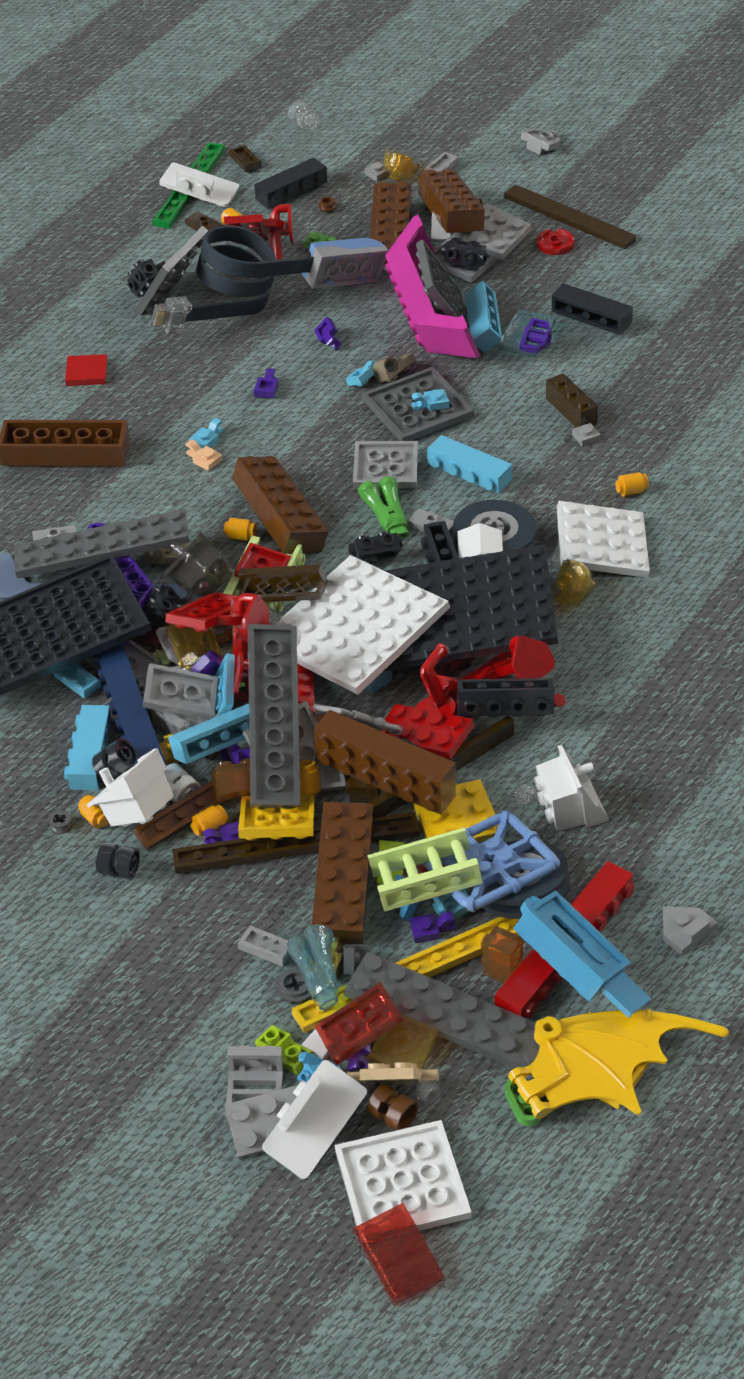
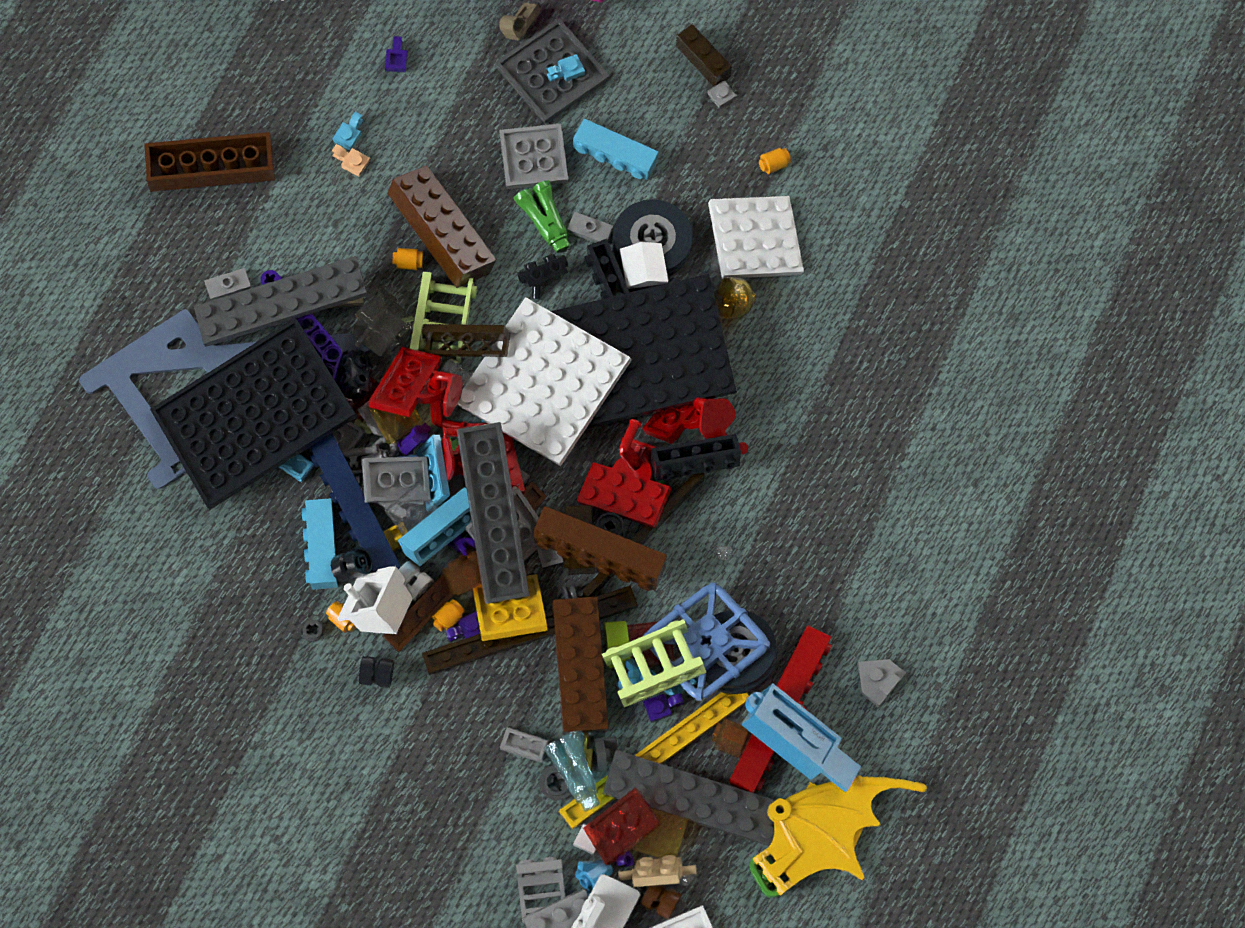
camera: 15 degrees left, 25 degrees up
(86, 370) = (206, 49): red tile -> none
(261, 557) = (440, 307): red tile -> none
(290, 1050) = (556, 846): lime slope -> none
(309, 778) = (531, 560): light orange brick -> none
(361, 375) = (489, 34): medium azure plate -> none
(377, 723) = (570, 488): light grey piece -> none
(465, 810) = (676, 584): yellow plate -> none
(568, 793) = (765, 553): white piece -> none

